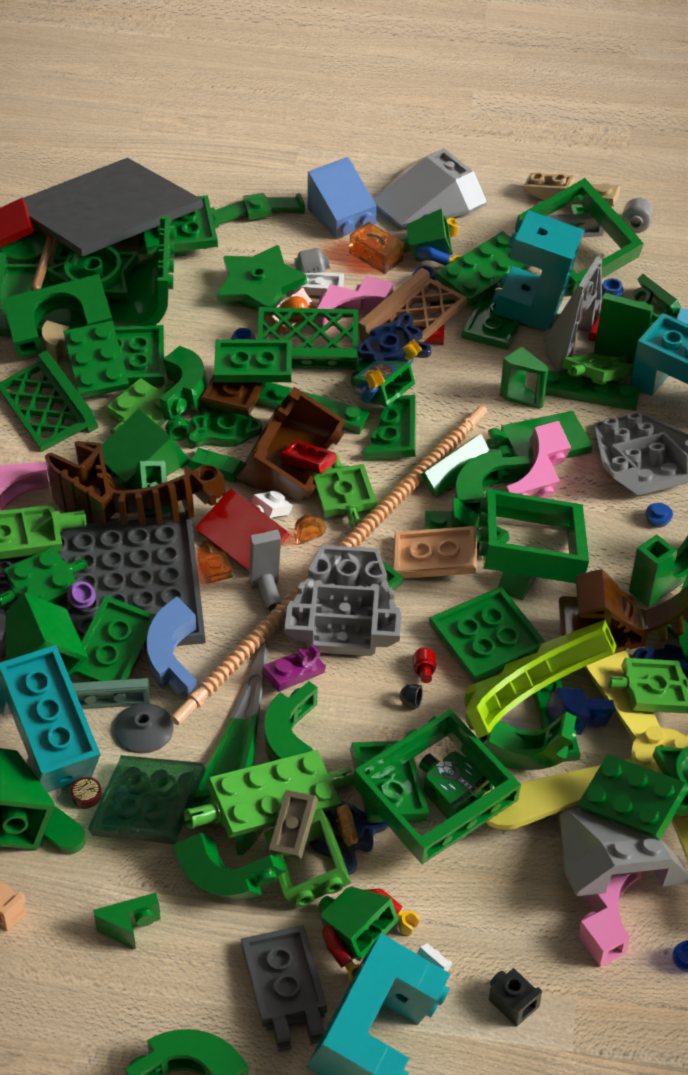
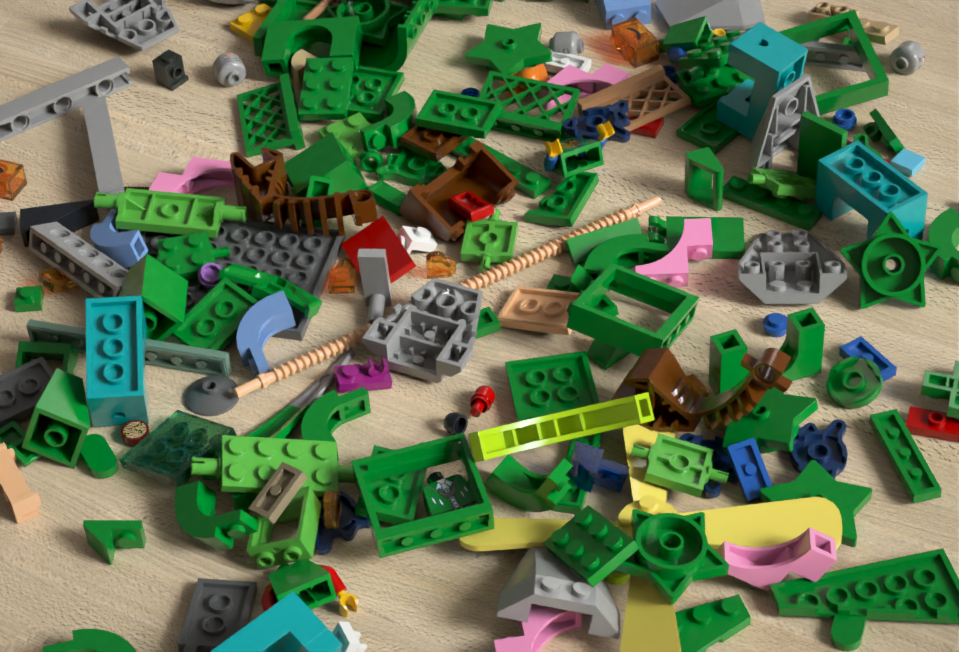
camera: 25 degrees right, 5 degrees down
(154, 594) = (267, 284): none -> green plate
(473, 244) = (709, 56): none -> green plate

